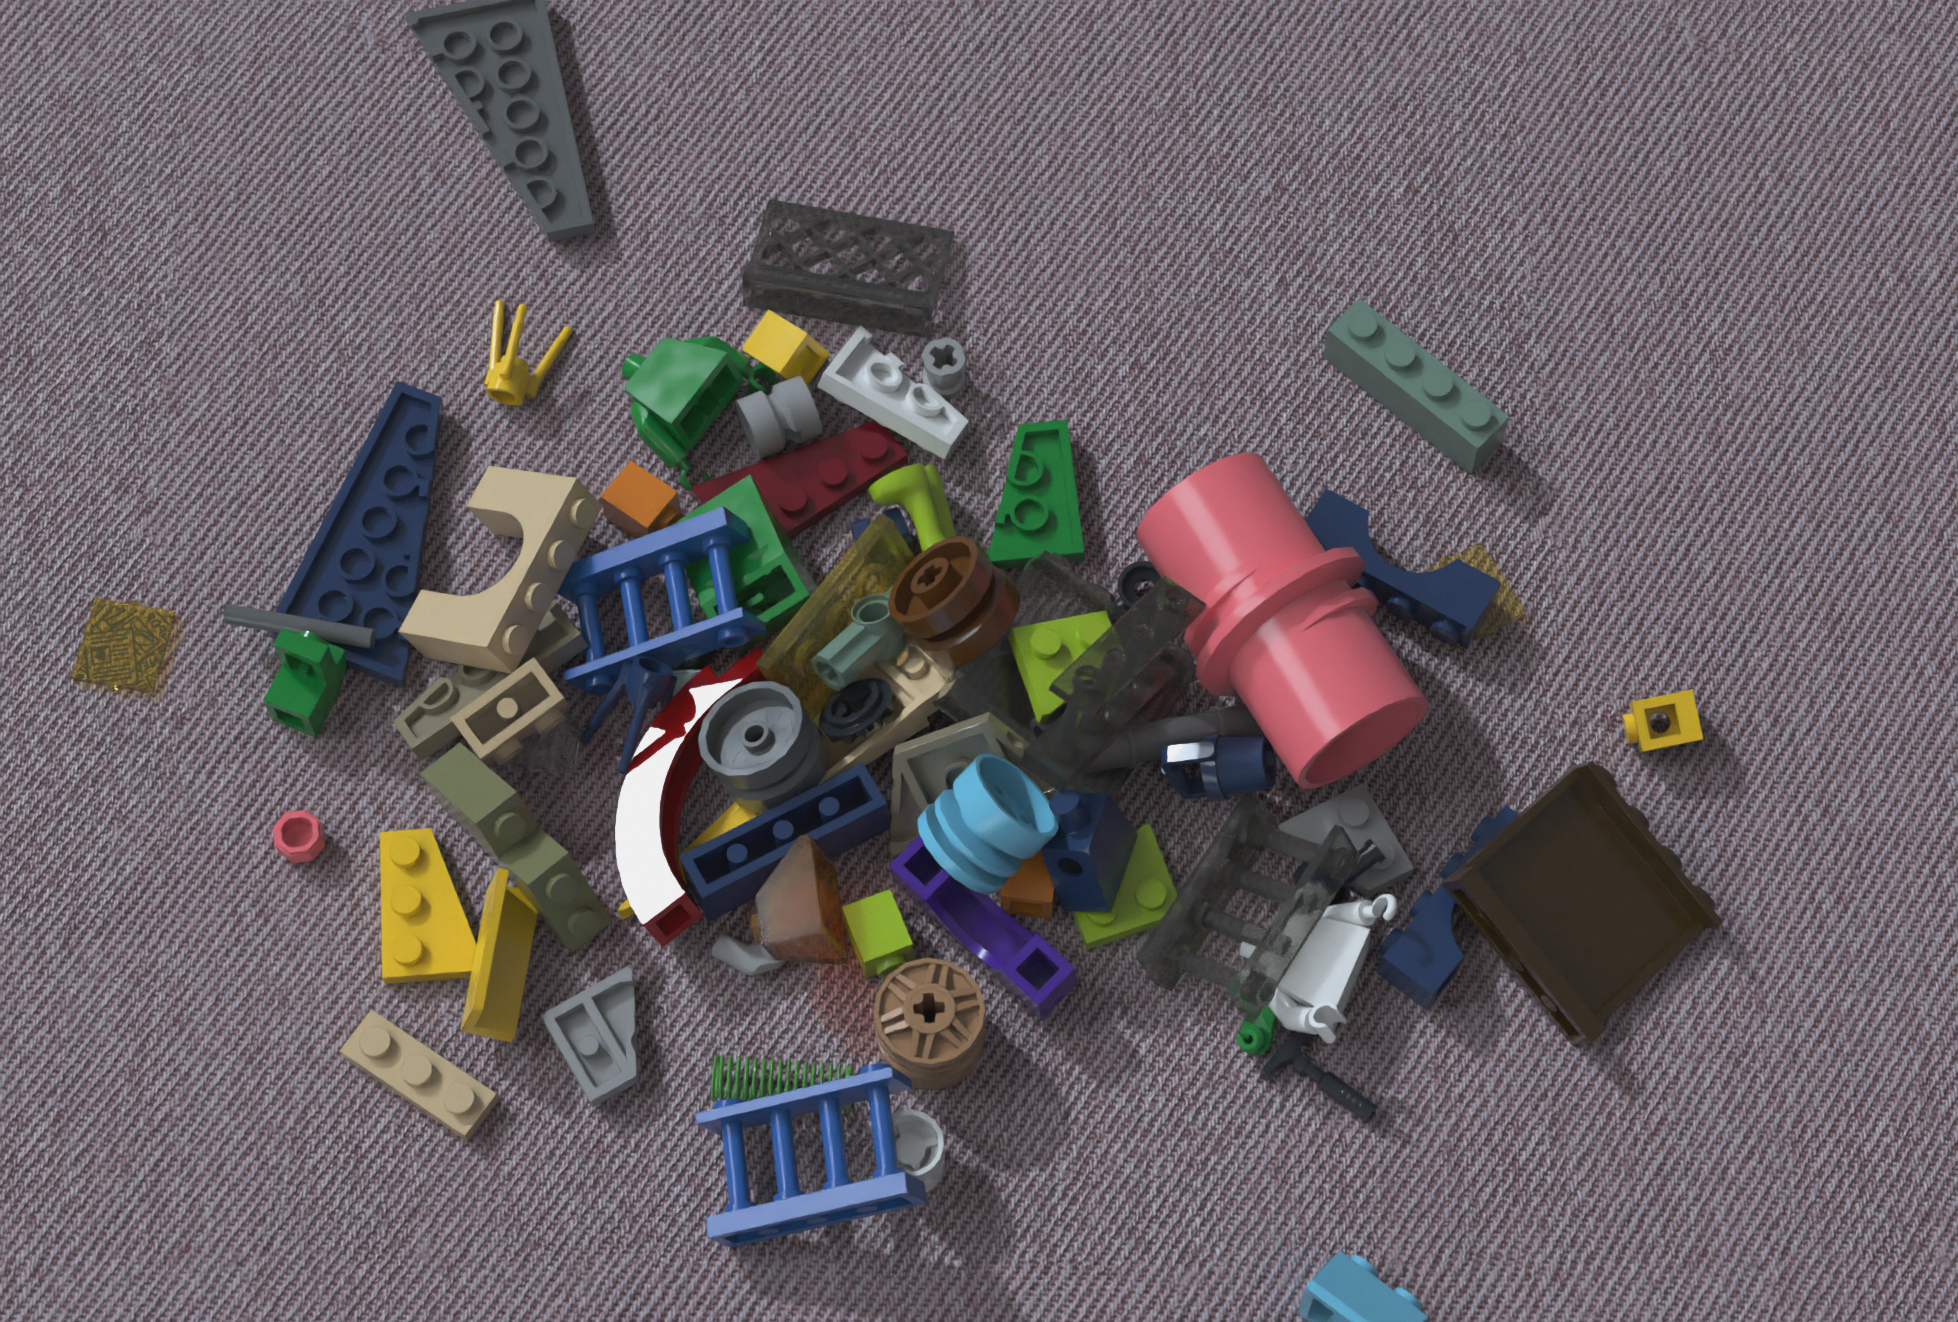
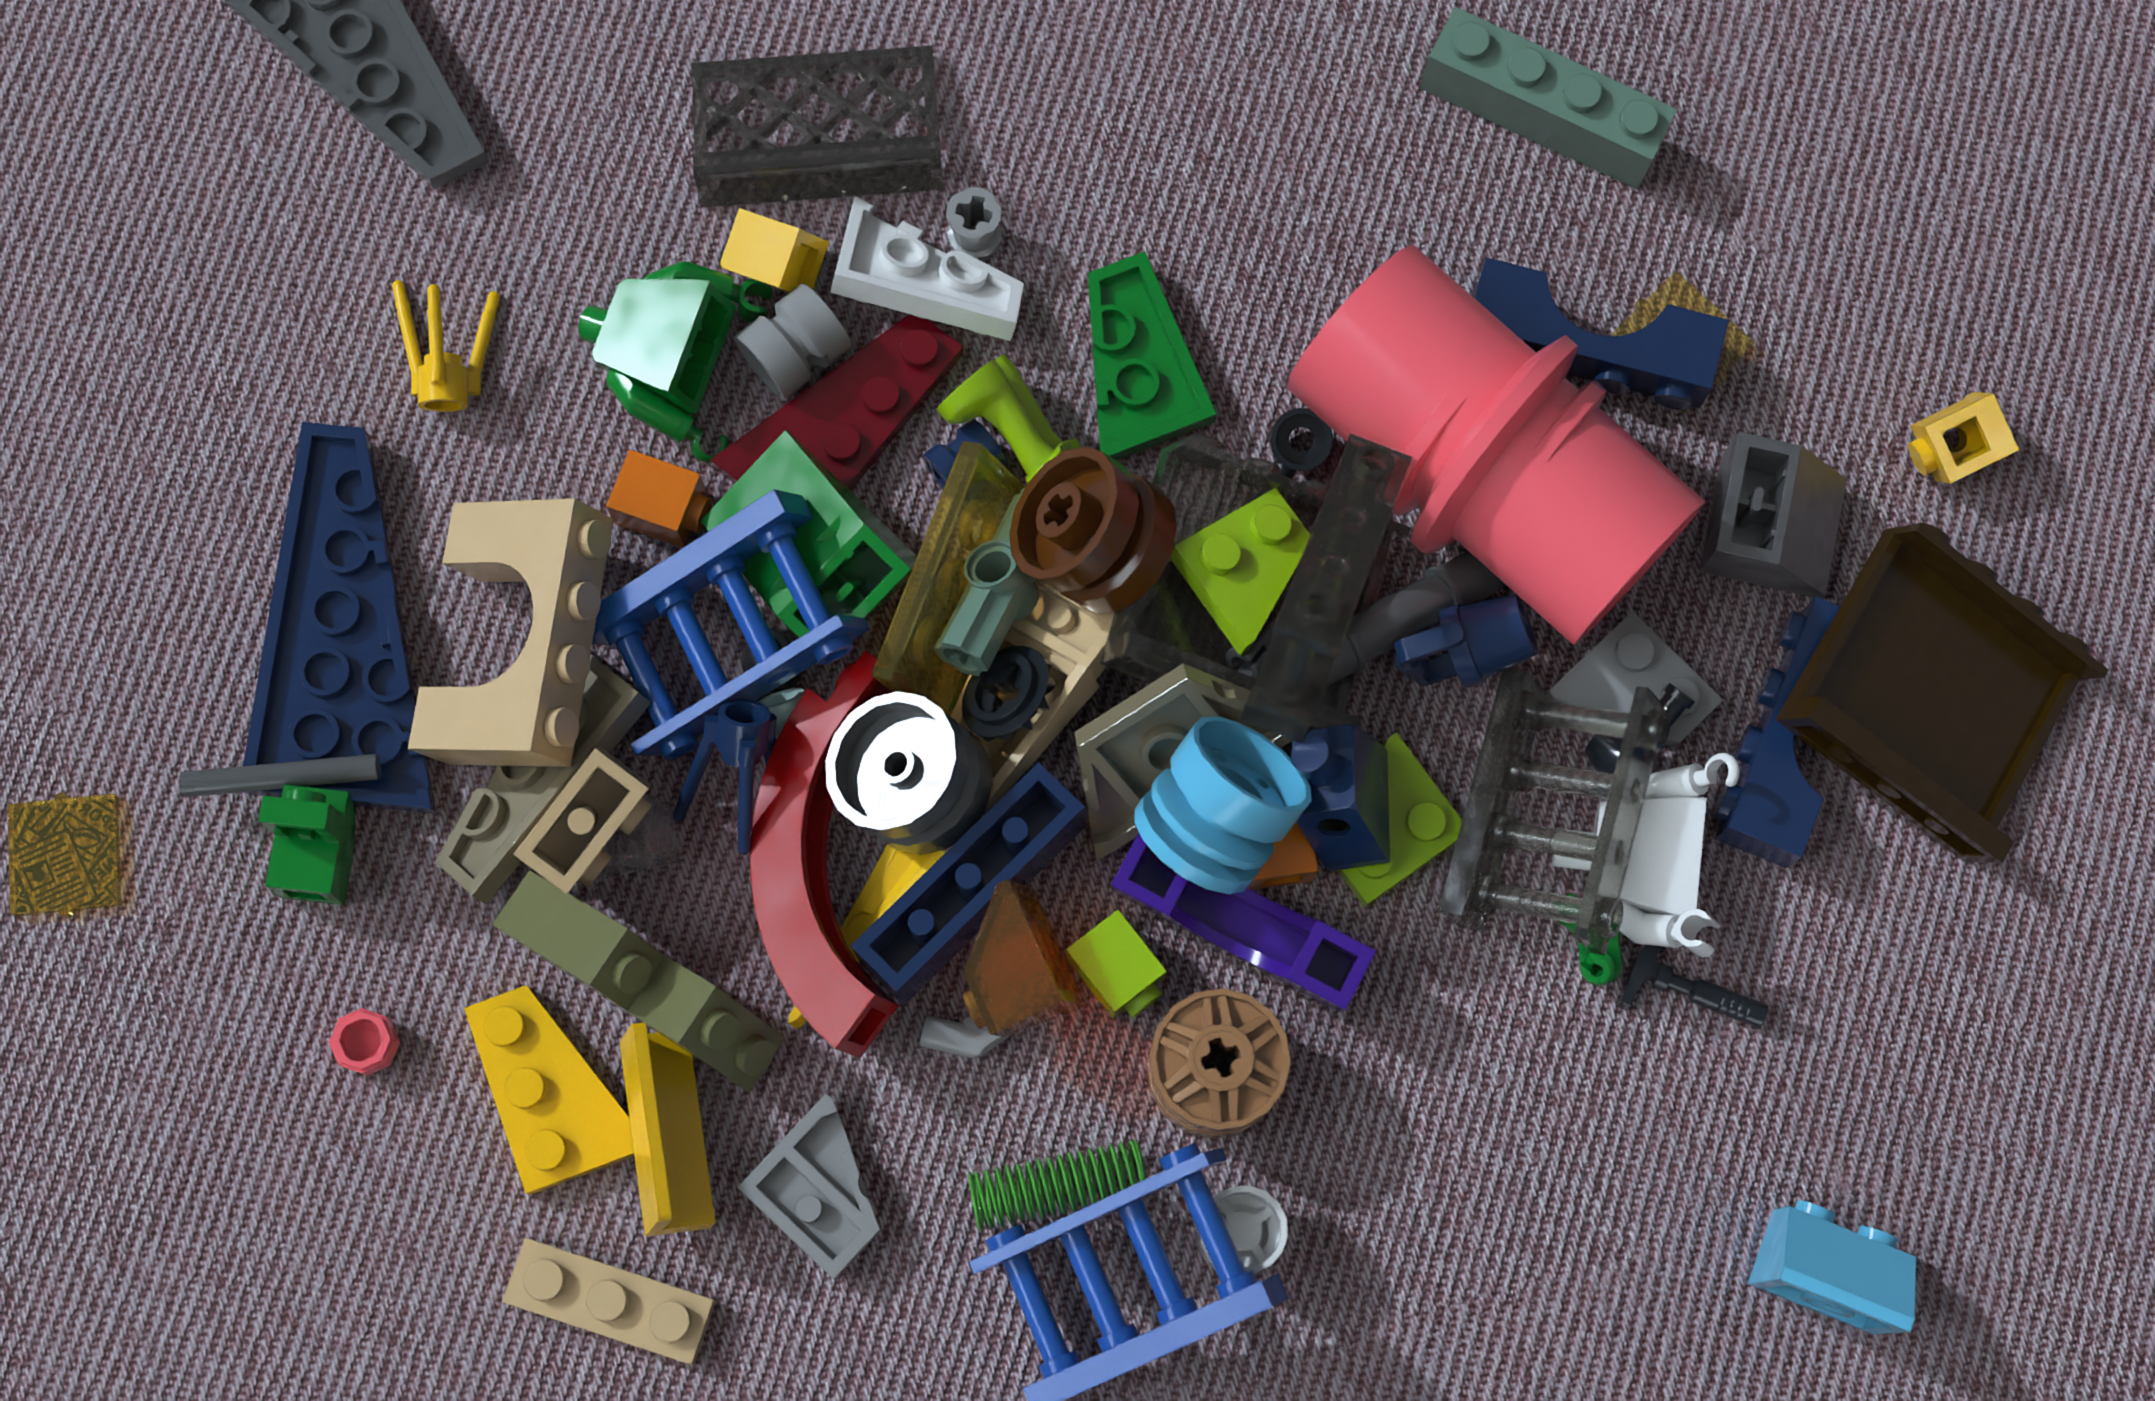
camera: 20 degrees left, 10 degrees up
(1496, 740) = (1774, 516): none -> flat silver slope

